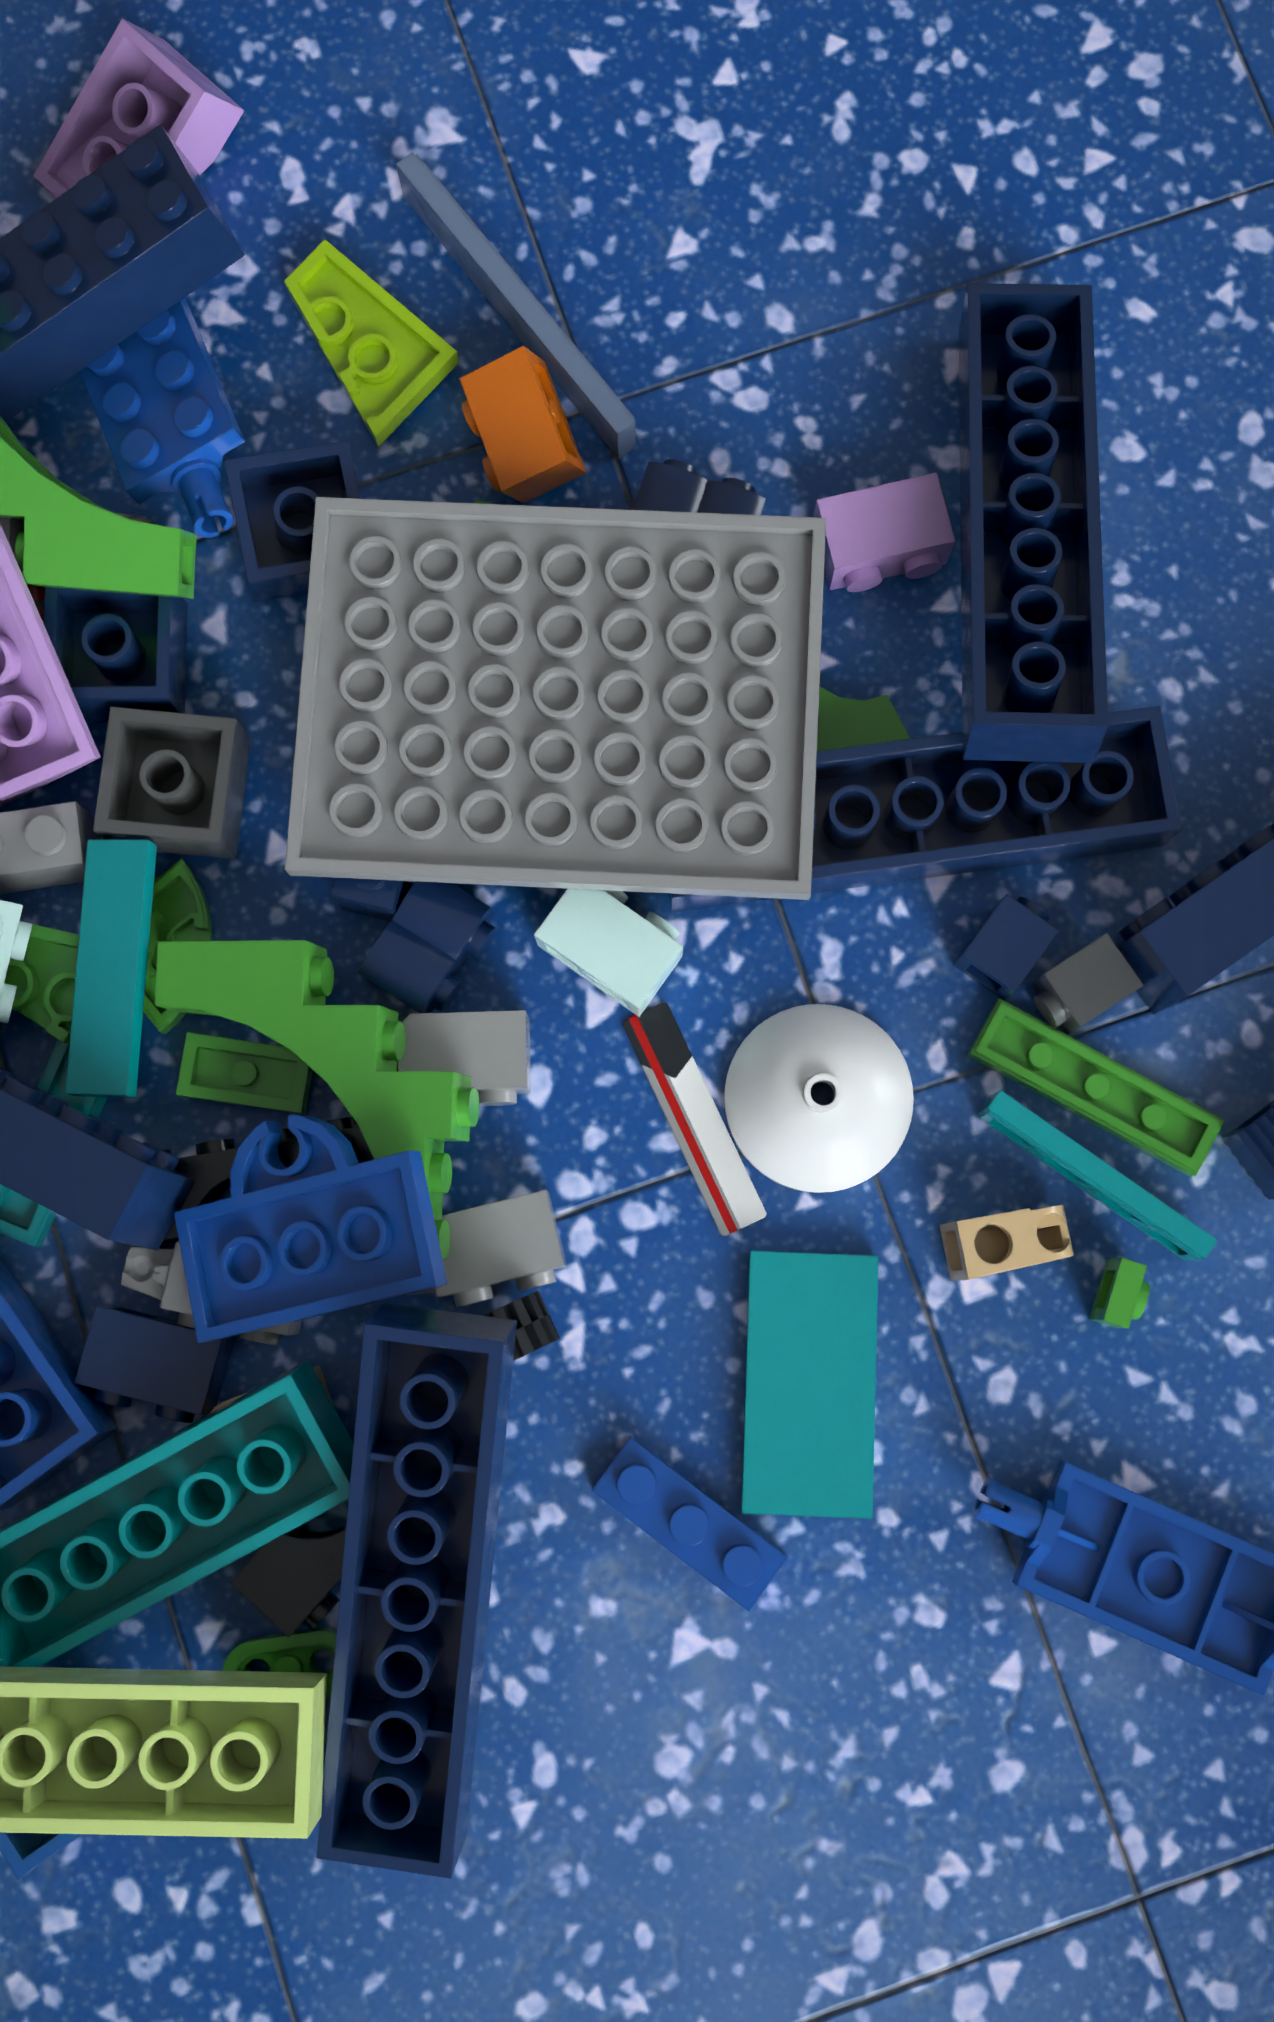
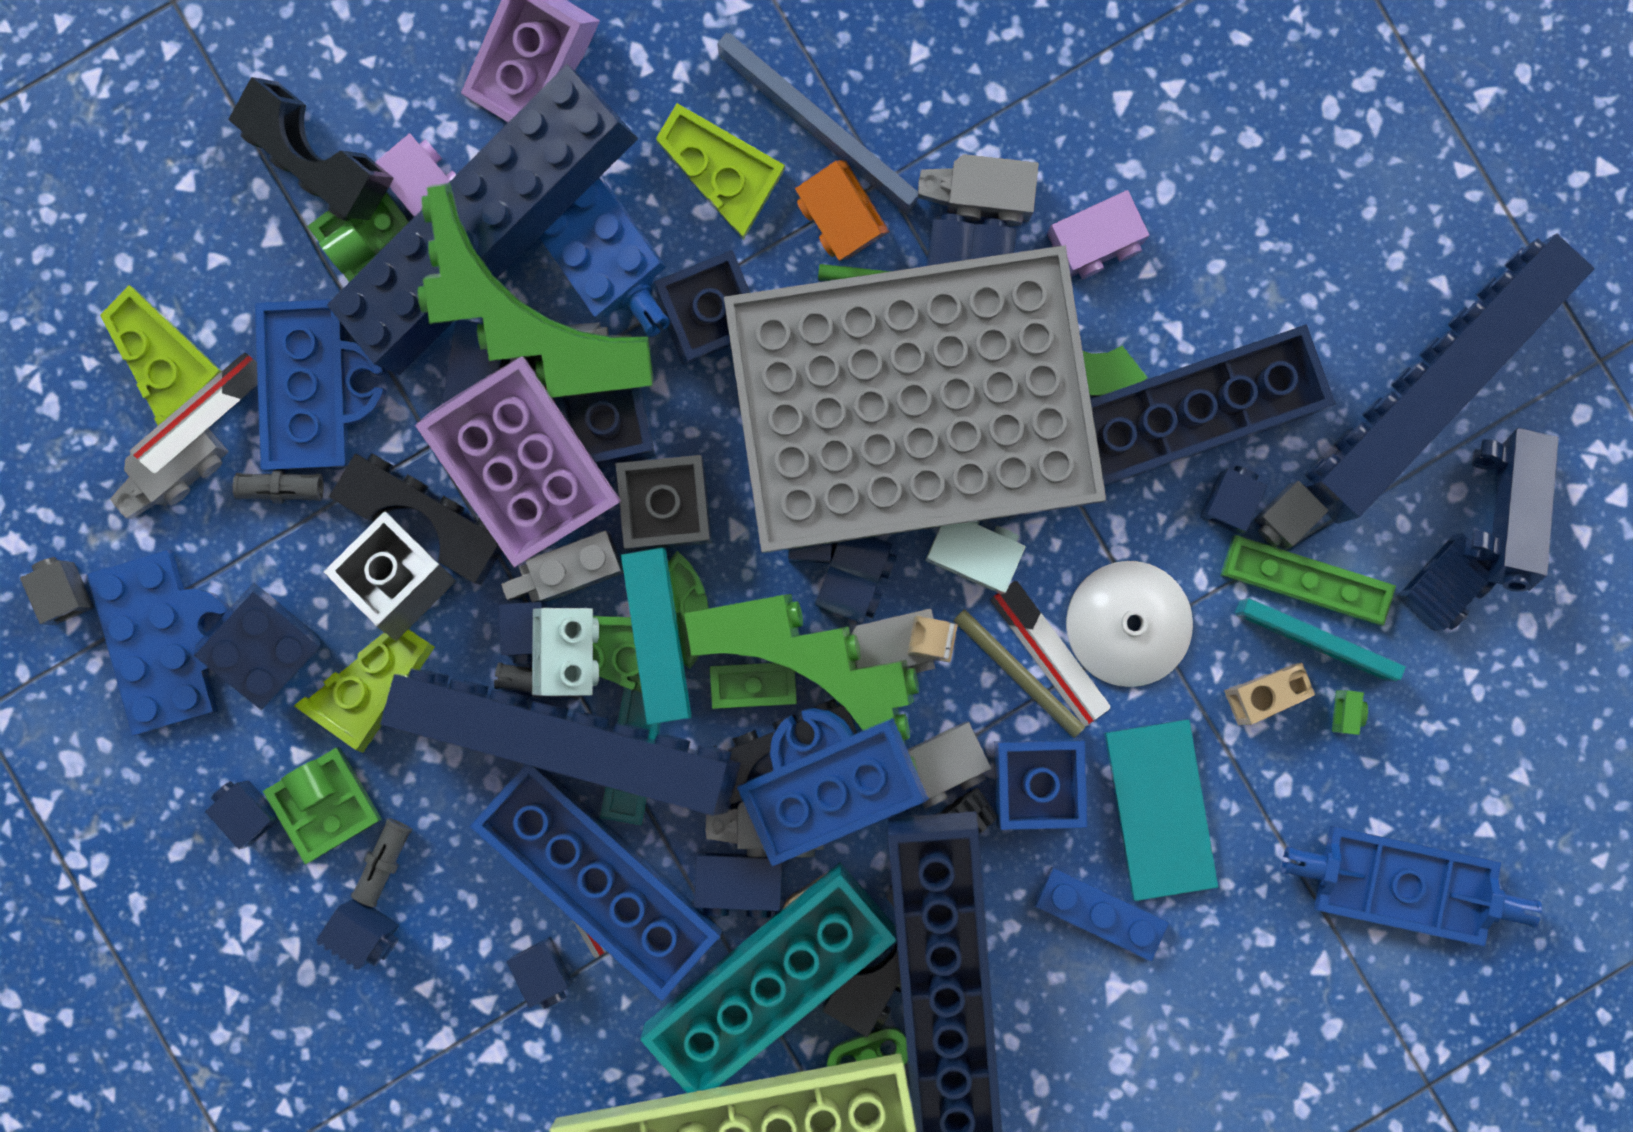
camera: 15 degrees left, 5 degrees up
(512, 1050) = (932, 639): none -> tan leg
(632, 1305) = (1040, 784): none -> blue brick
(640, 1137) = (1019, 673): none -> olive bar
(732, 435) = (983, 188): none -> light grey hinge
(1030, 526) = (1198, 216): dark blue brick -> none

